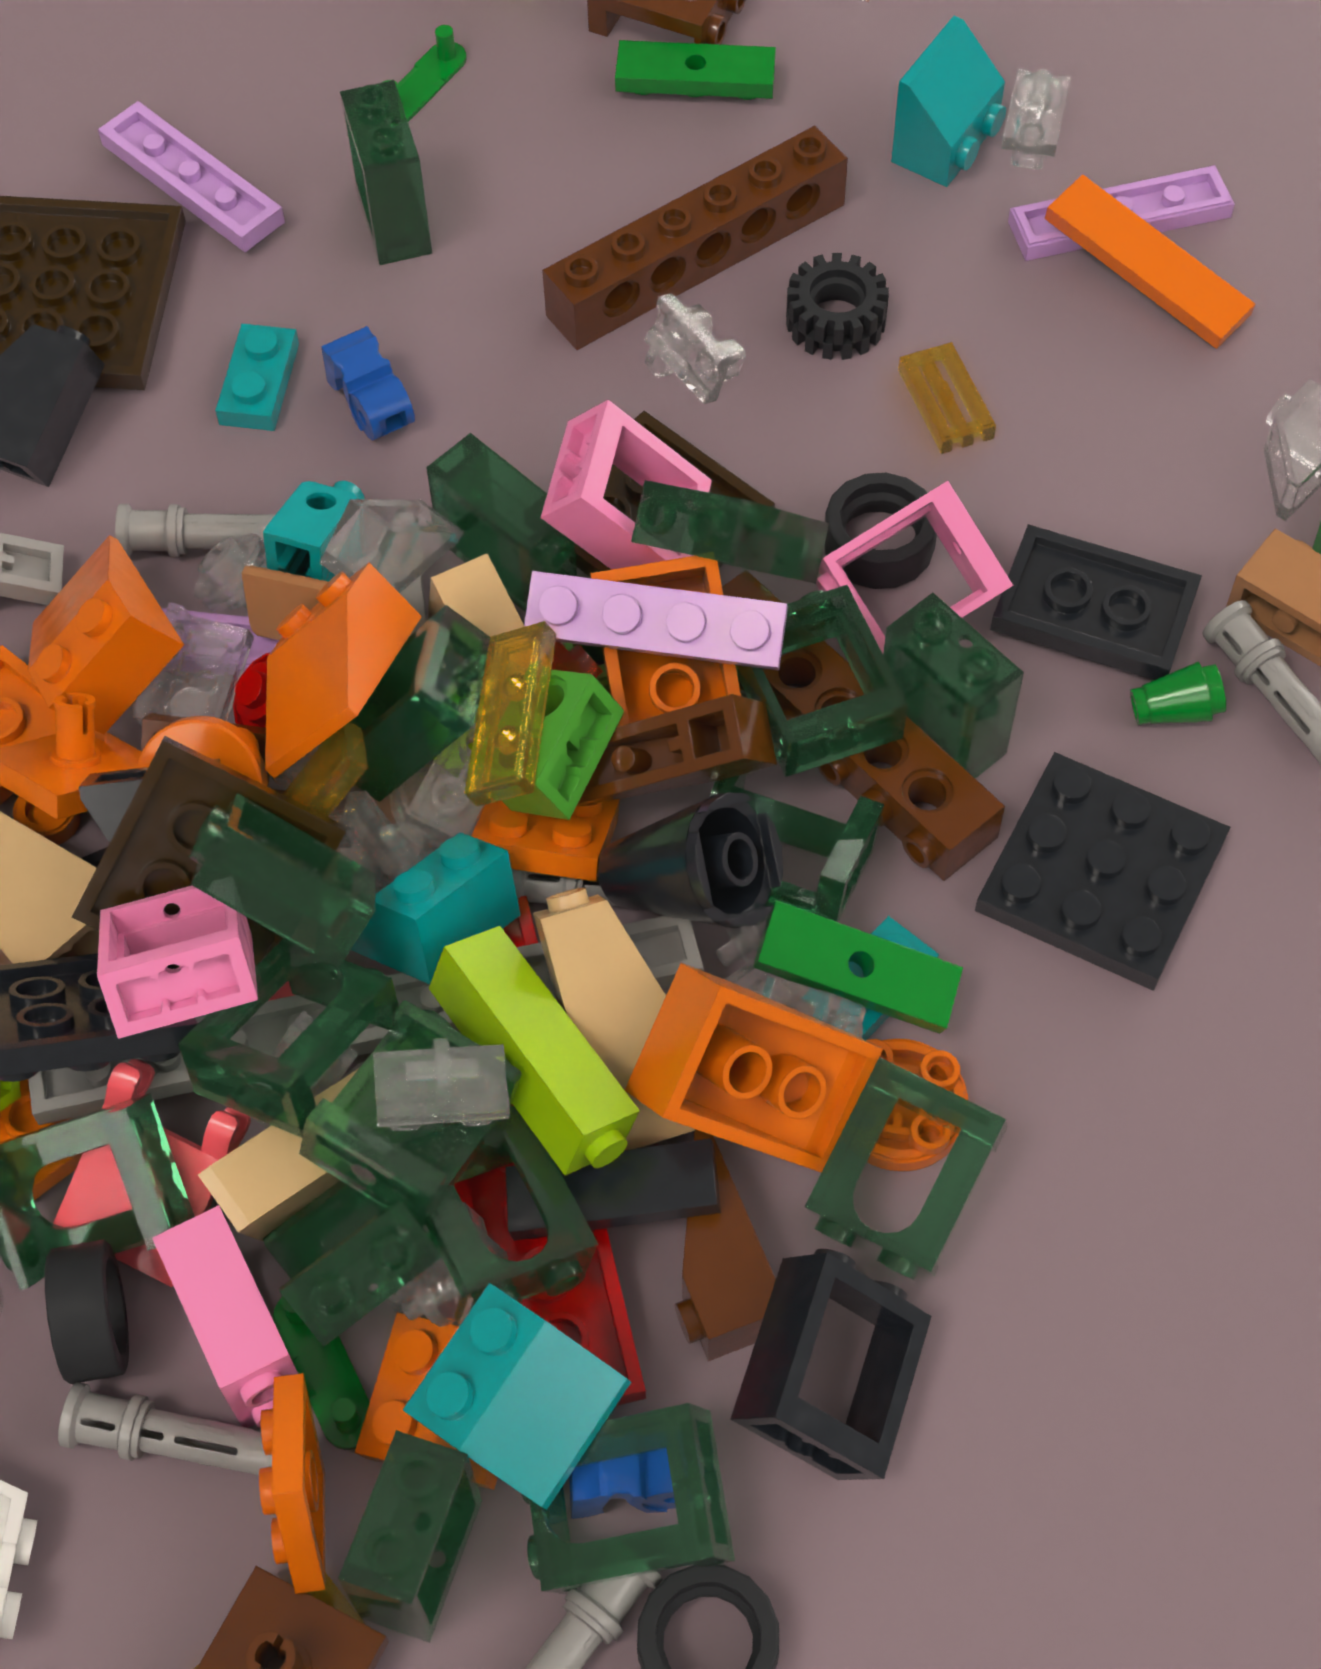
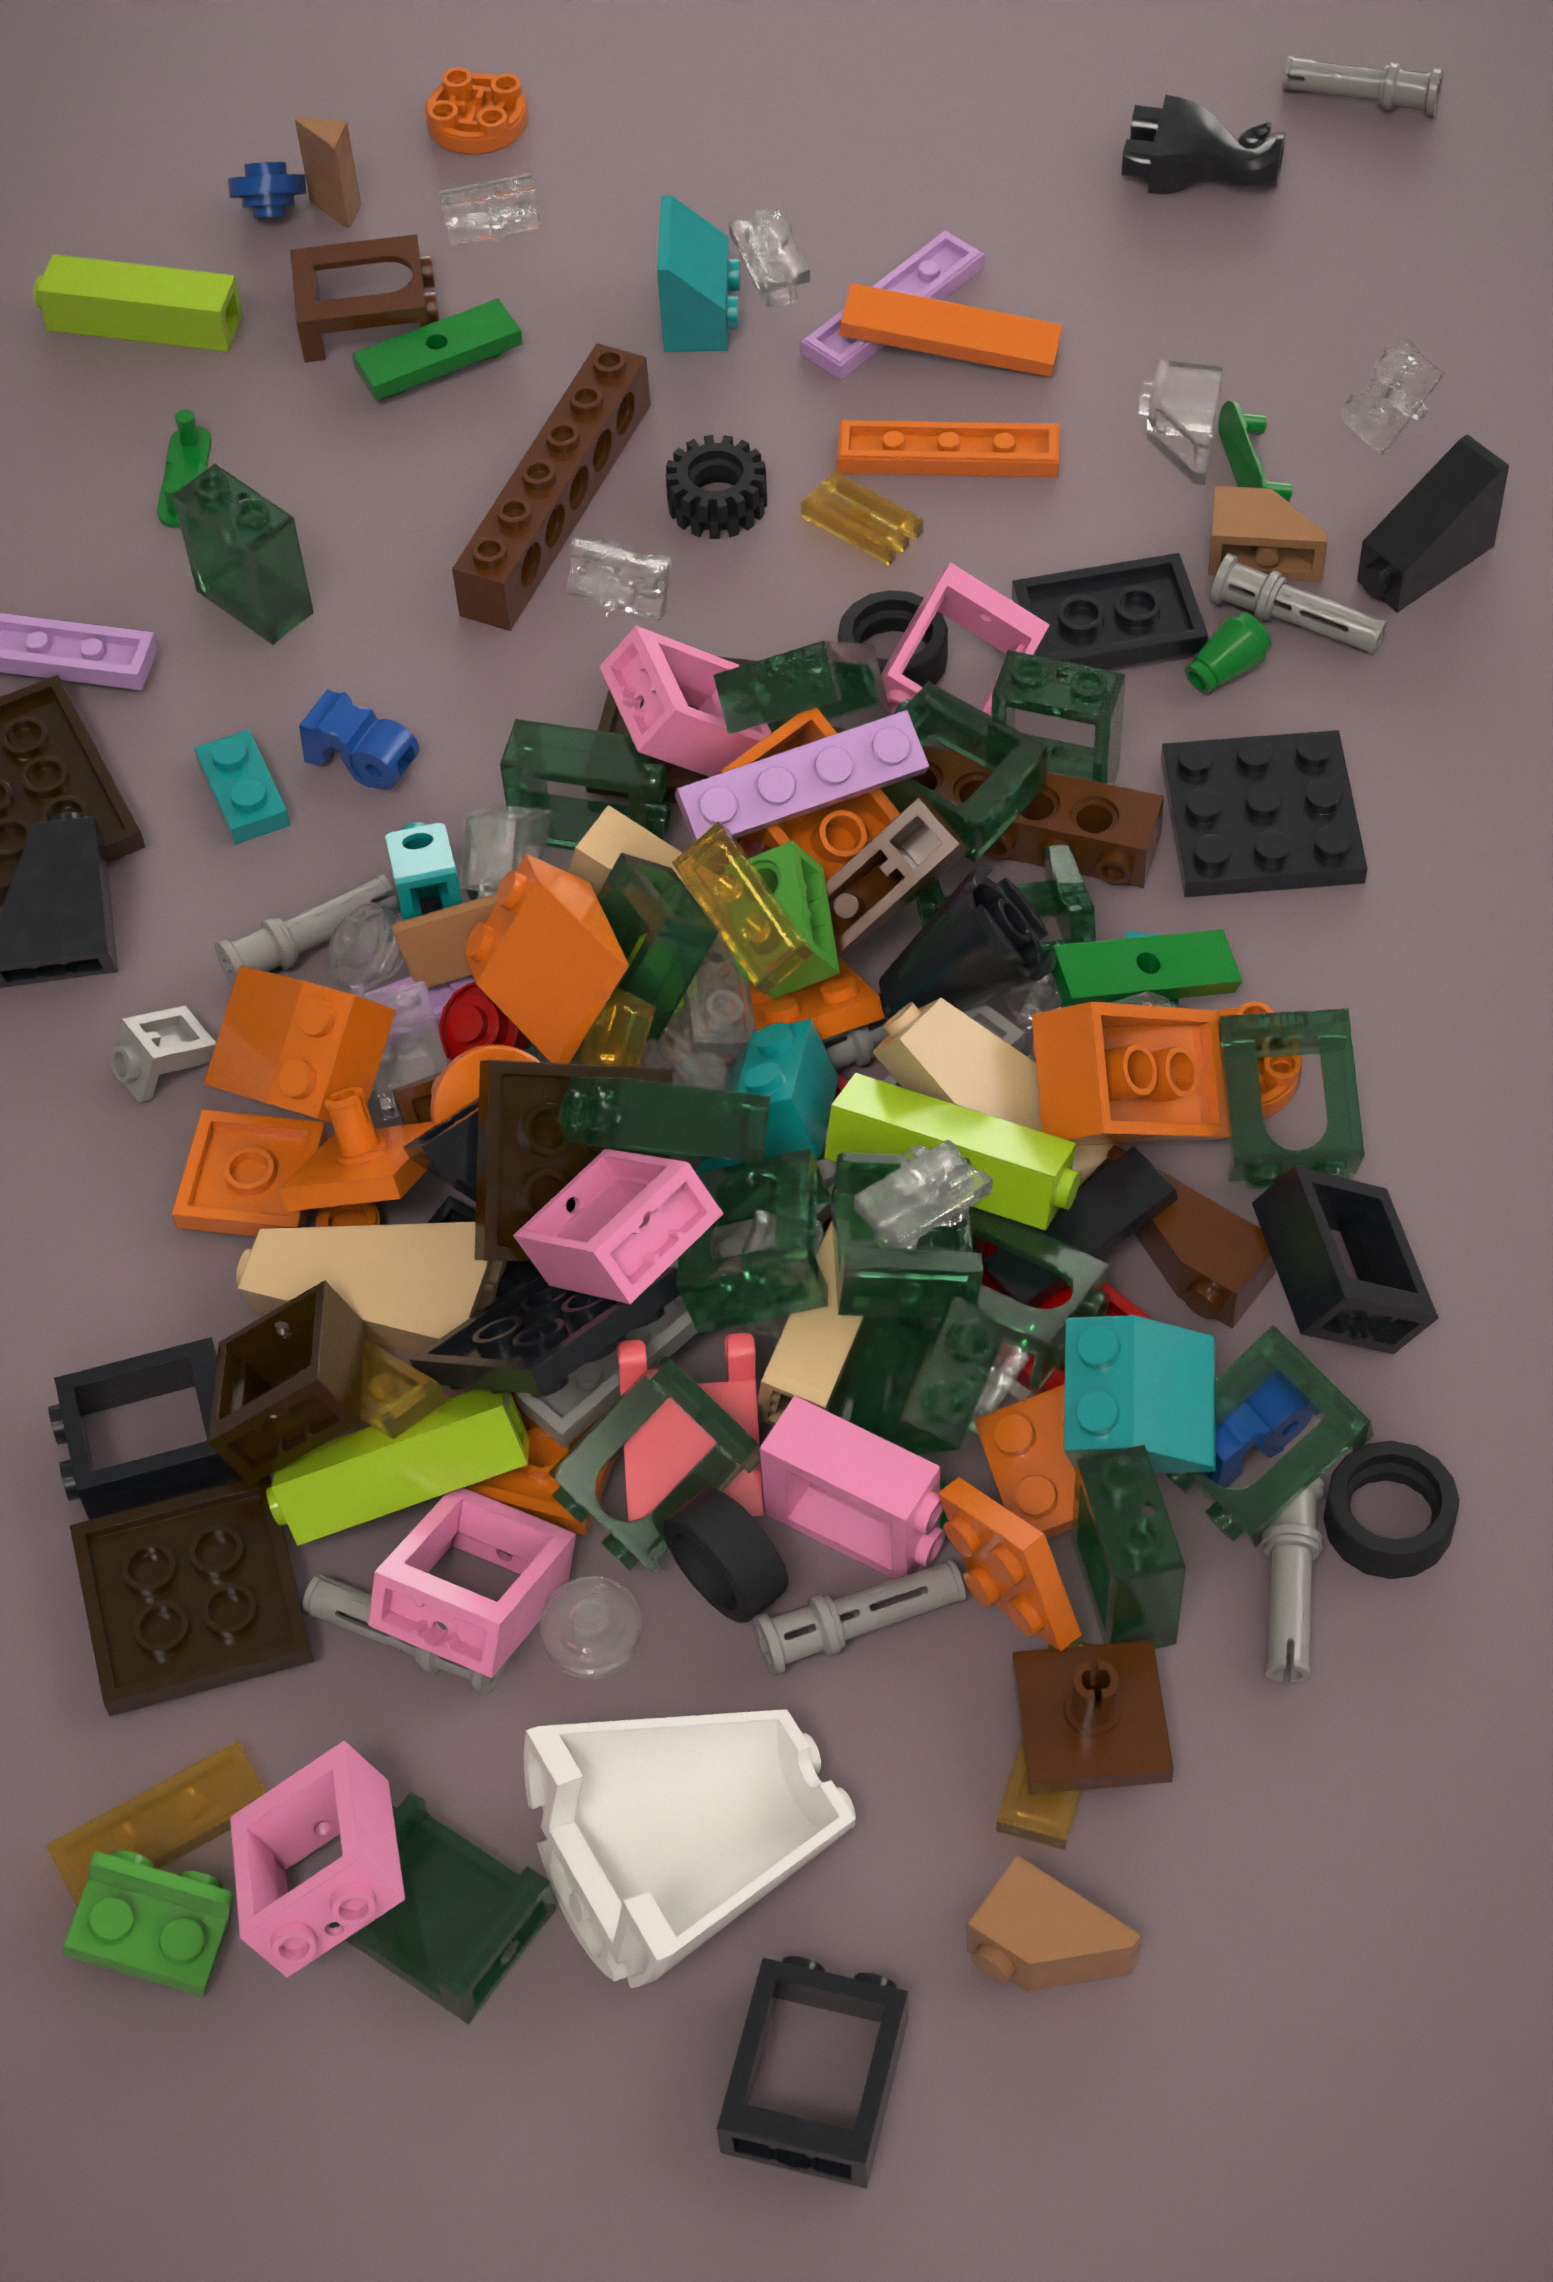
camera: 30 degrees left, 5 degrees down
(1072, 371) = (948, 448): none -> orange tile

